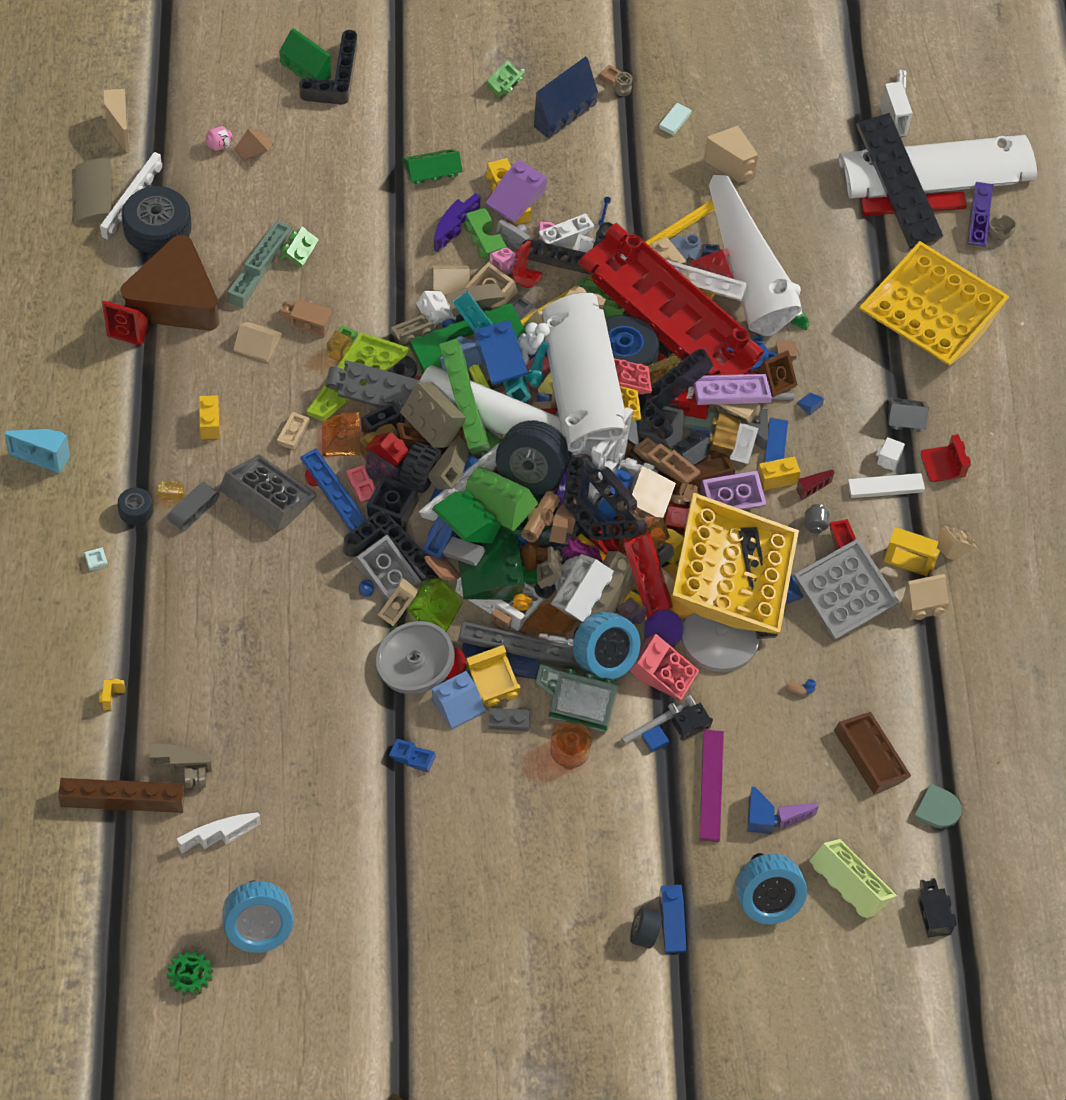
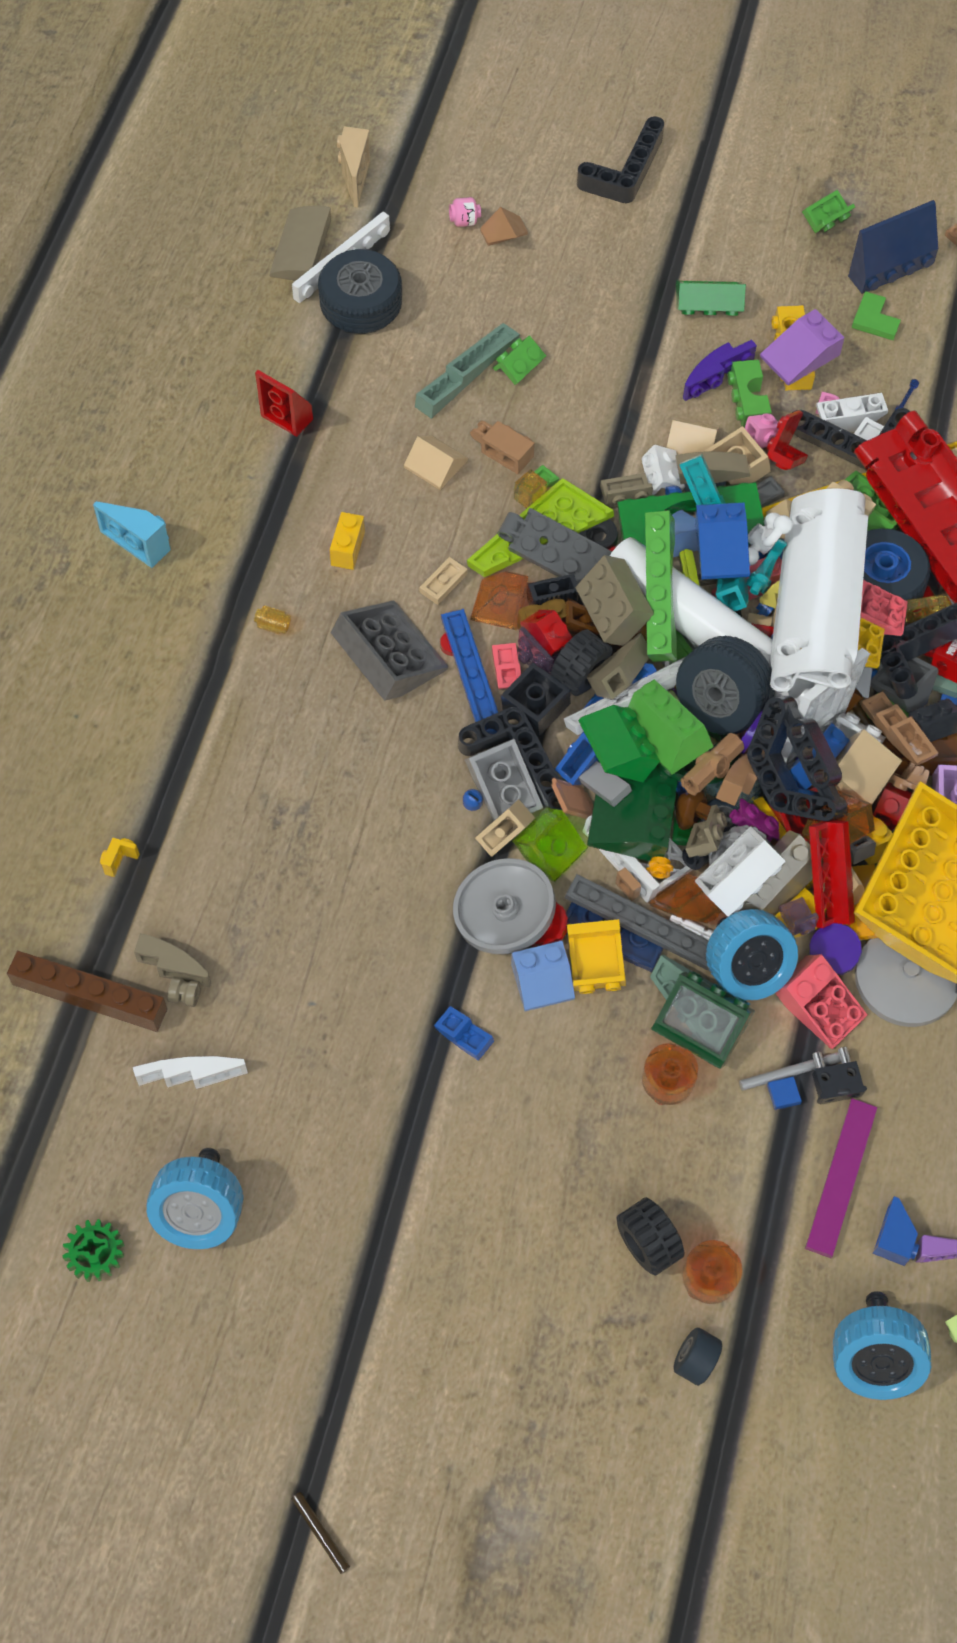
camera: 20 degrees right, 5 degrees up
(96, 559) = (157, 683): light aqua tile -> none
(135, 506) = (224, 629): black wheel -> none
(174, 288) = (351, 376): reddish brown brick -> none
(193, 506) = (293, 645): dark grey beam -> none
(305, 57) = (594, 137): green slope -> none
(509, 719) = (601, 1017): dark grey plate -> none
(512, 235) = (782, 399): light grey tile -> none
(561, 158) = (872, 321): none -> bright green tile
(590, 856) = (650, 1236): none -> black tyre
(639, 870) = (725, 1265): none -> clear orange brick
(672, 918) = (738, 1352): blue slope -> none

